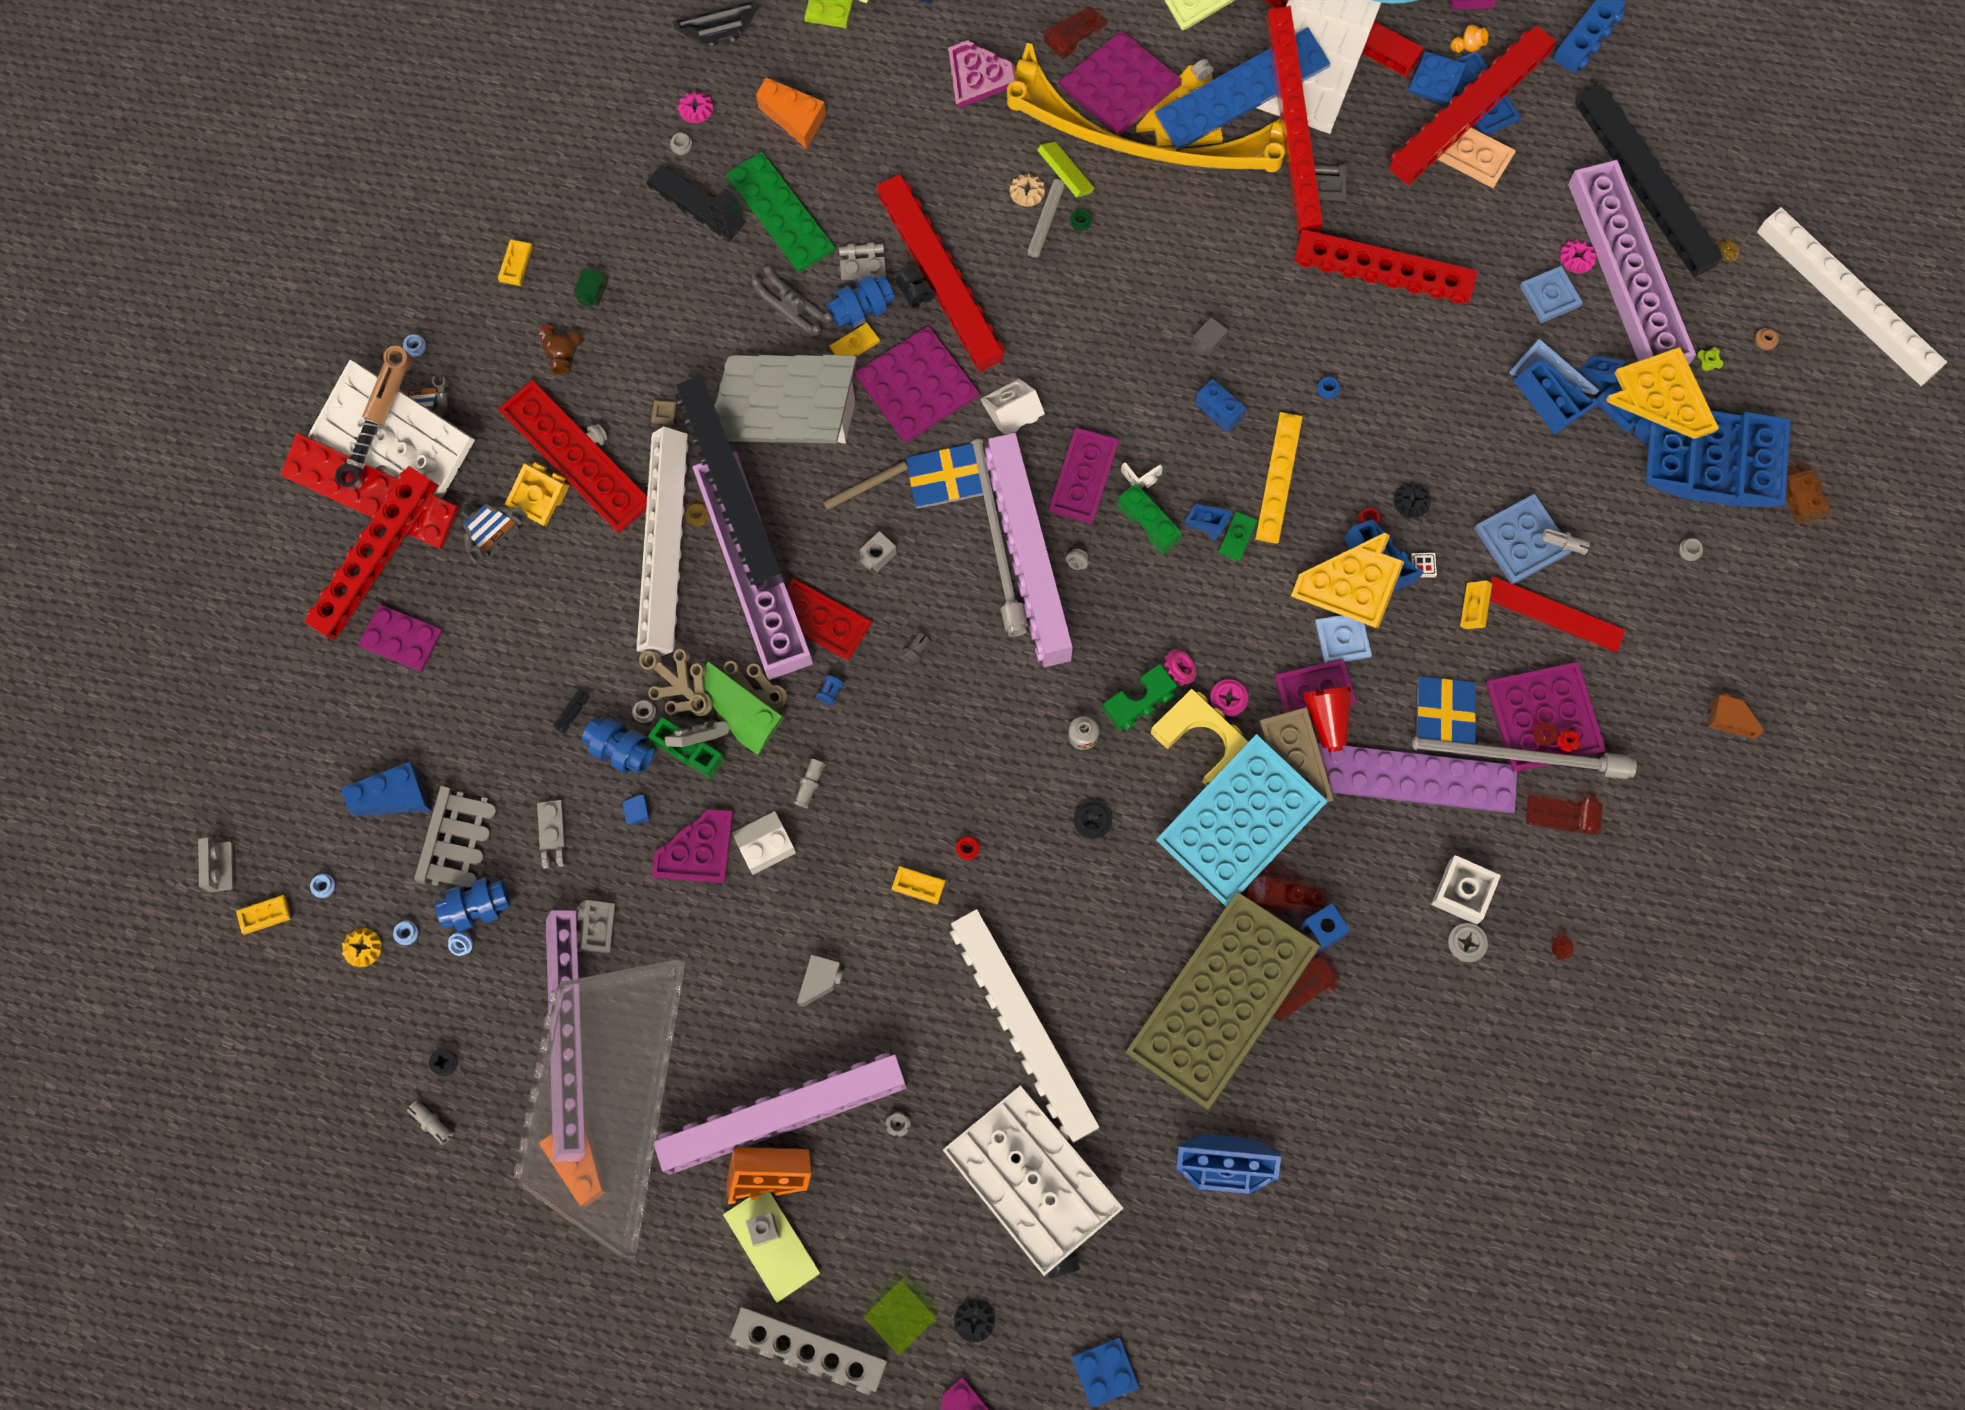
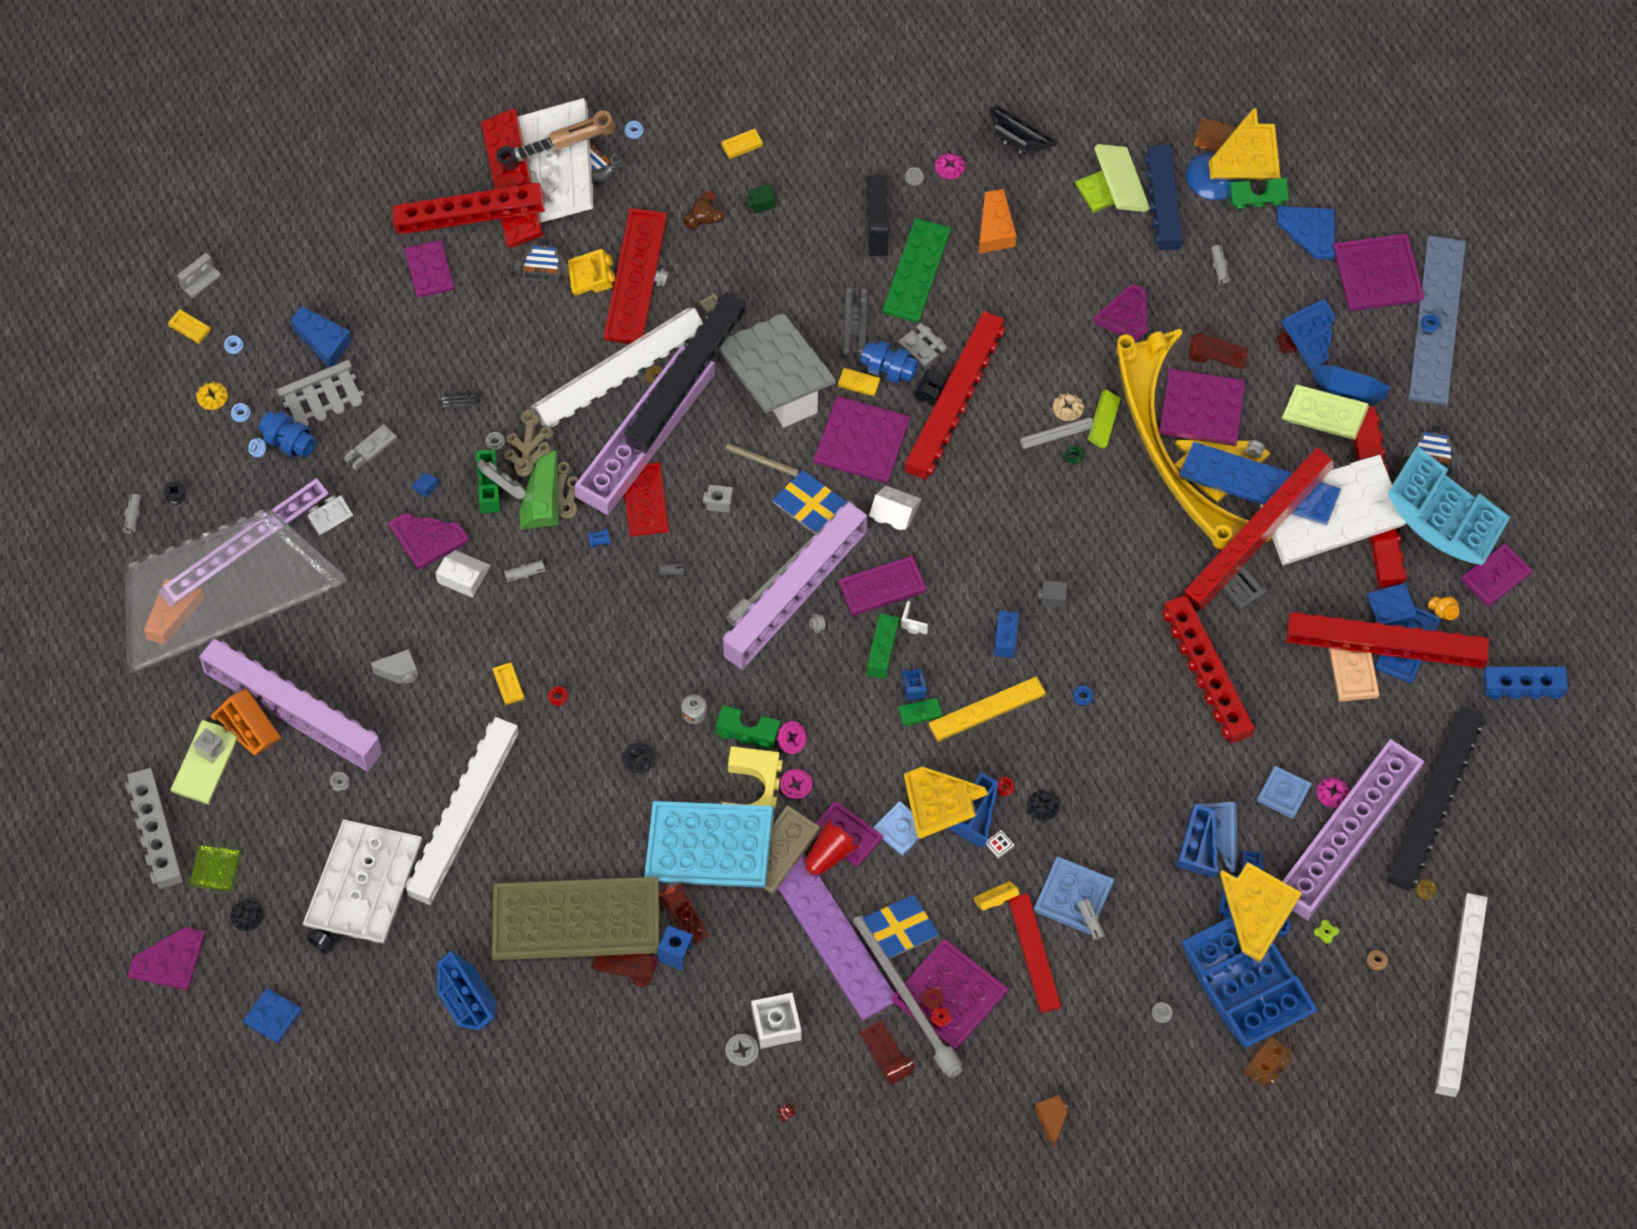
camera: 50 degrees right, 10 degrees down
(609, 740) = (457, 440): blue piece -> none

